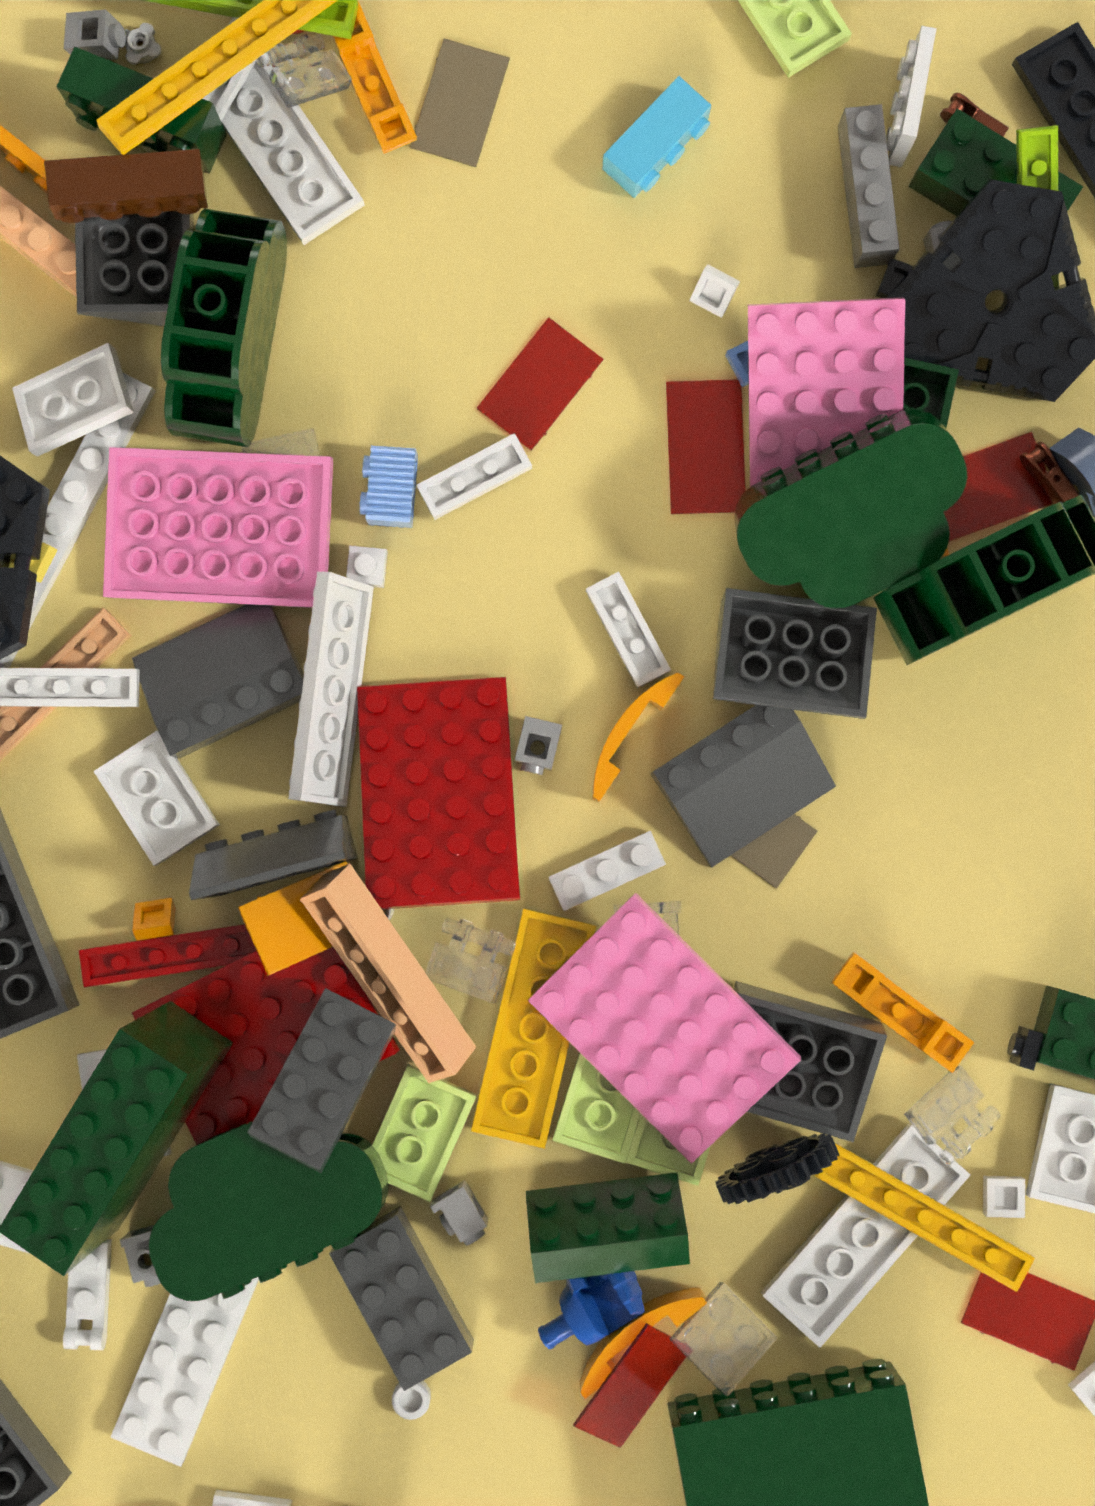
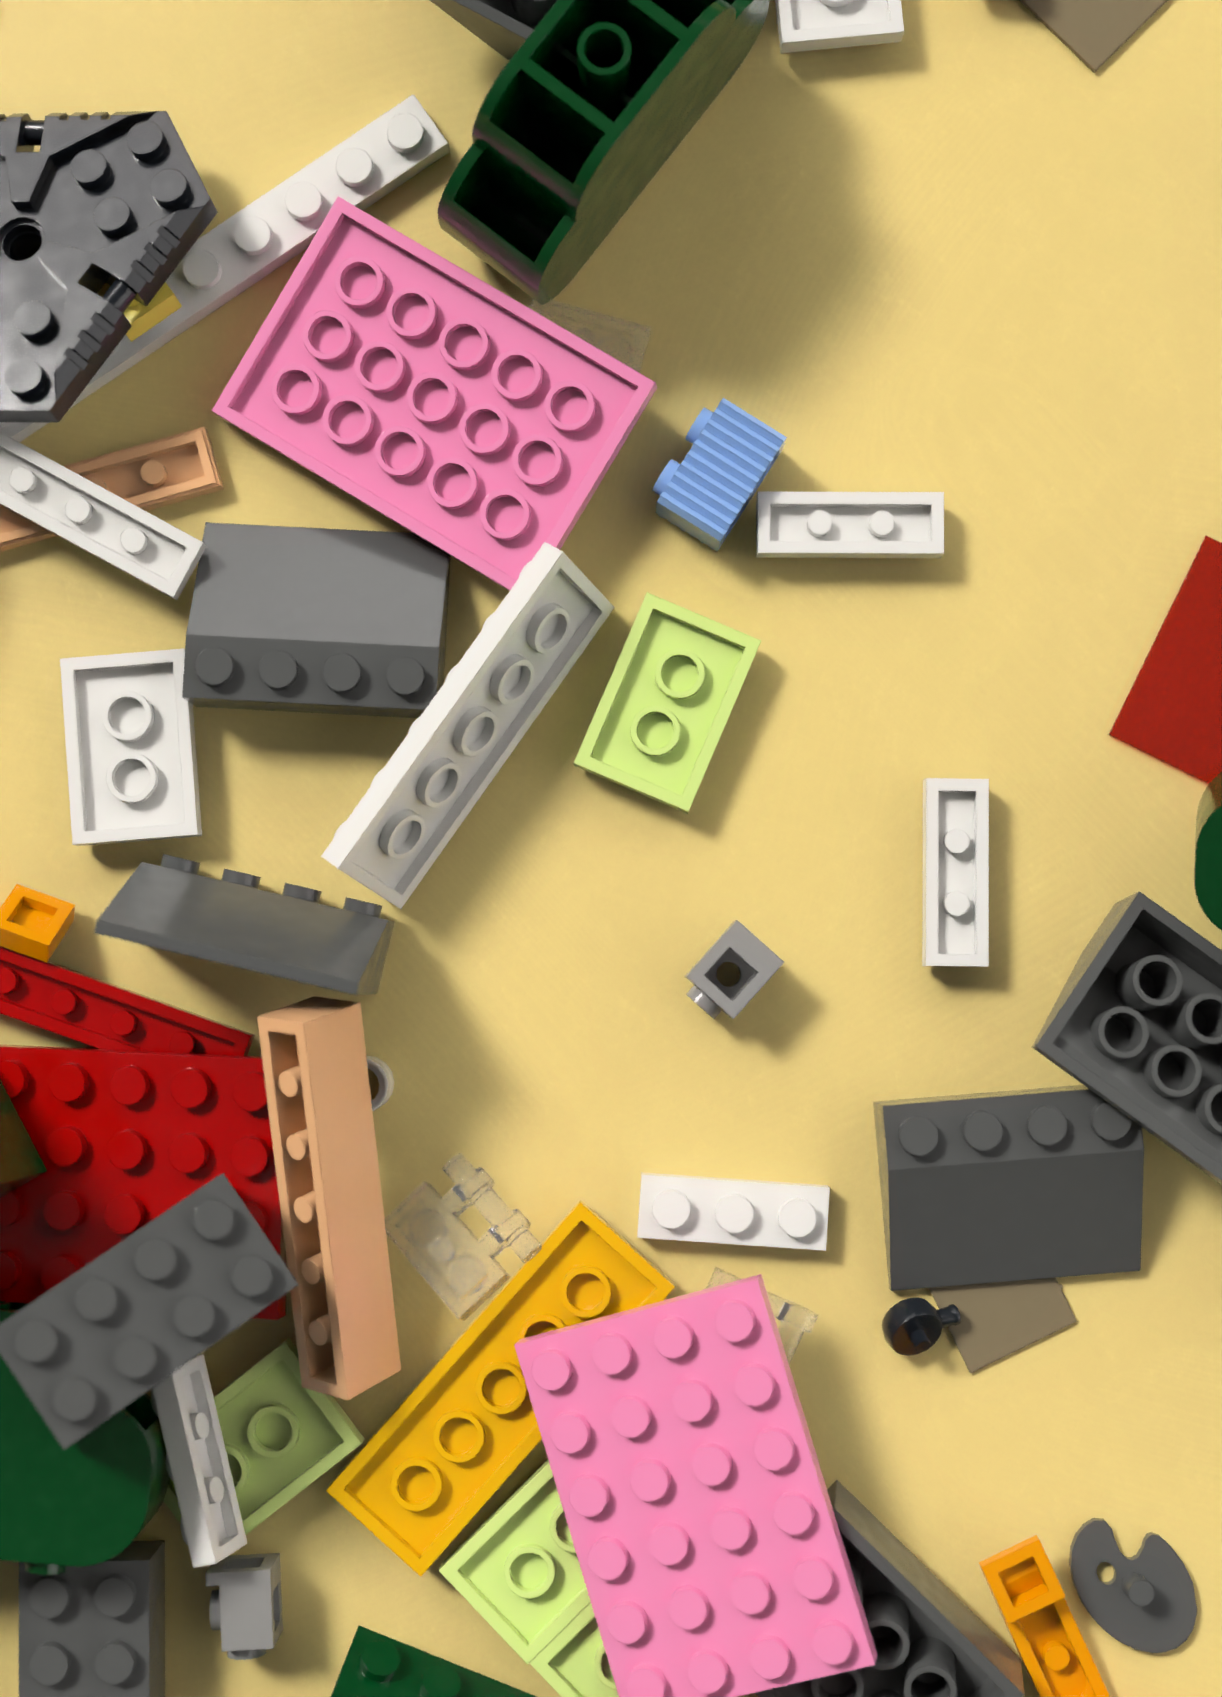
camera: 25 degrees right, 0 degrees up
(72, 399) = (322, 99): white plate -> none
(283, 926) = (210, 1043): light orange window -> none
(367, 565) = (622, 571): white plate -> none
(394, 1150) = (198, 1464): none -> white plate
(428, 622) = (667, 702): none -> yellowish green plate
(437, 793) = (545, 965): red plate -> none
(540, 383) = (1018, 439): clear red window -> none
(657, 696) = (809, 1065): light orange slope -> none
(733, 877) = (916, 1325): none -> black piece
(931, 958) = (1149, 1597): none -> dark grey piece

